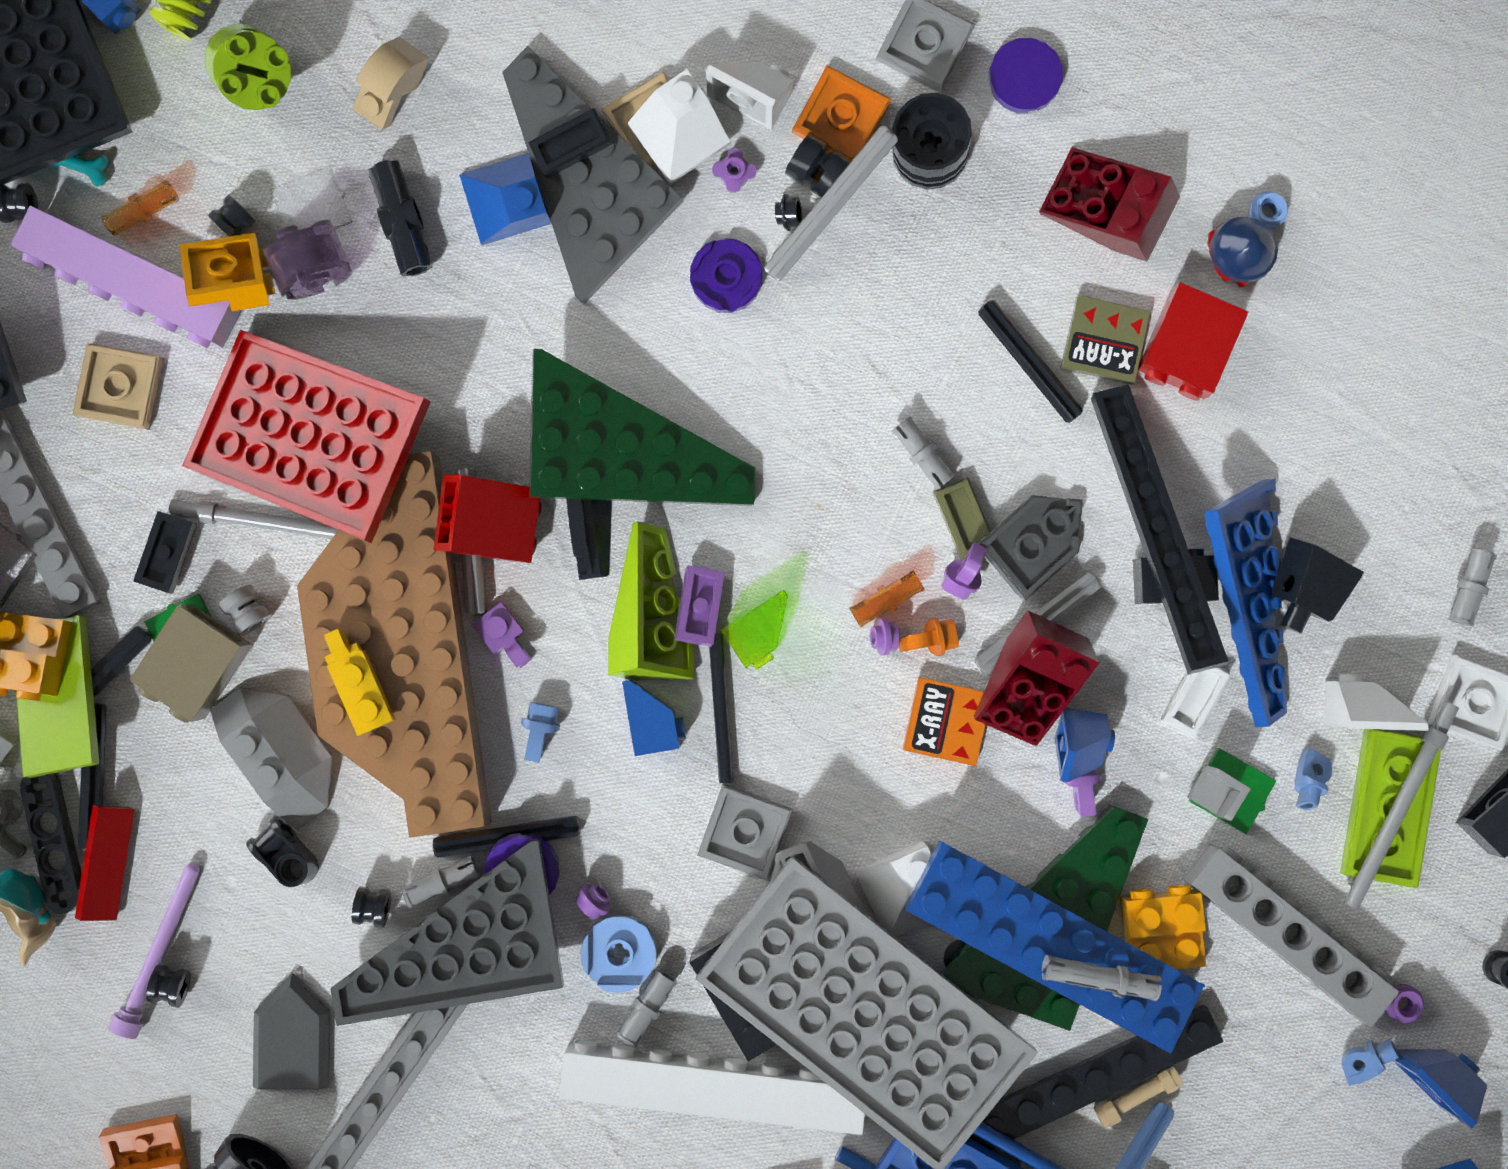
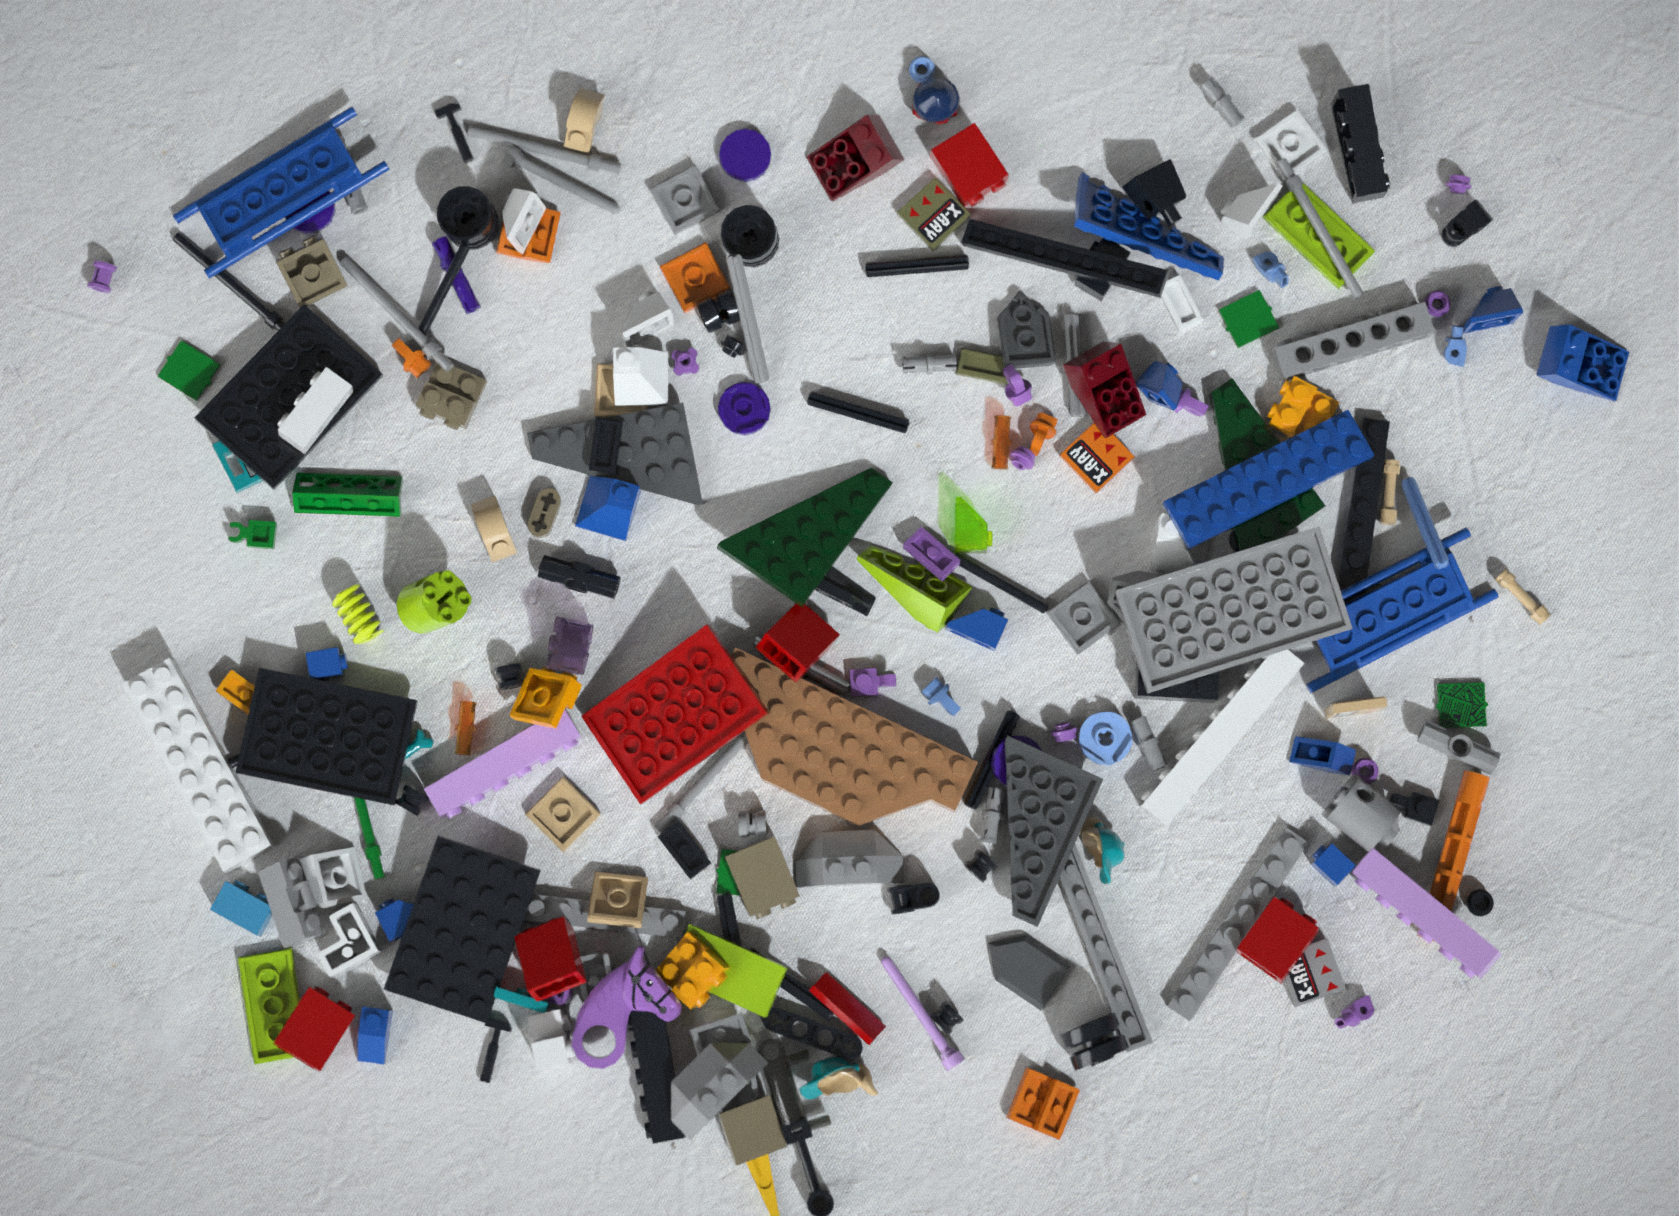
camera: 60 degrees left, 5 degrees down
(54, 514) = (617, 899): none -> tan tile
(311, 200) = (531, 626): clear piece -> none
(357, 684) = (845, 778): yellow hinge -> none
(452, 137) = (538, 511): none -> dark tan beam
(488, 1041) = (1103, 846): none -> hair
(811, 409) = (858, 412): none -> black axle
(1115, 980) = (1309, 455): light grey pin -> none
(1218, 792) = (1242, 327): light grey panel -> none

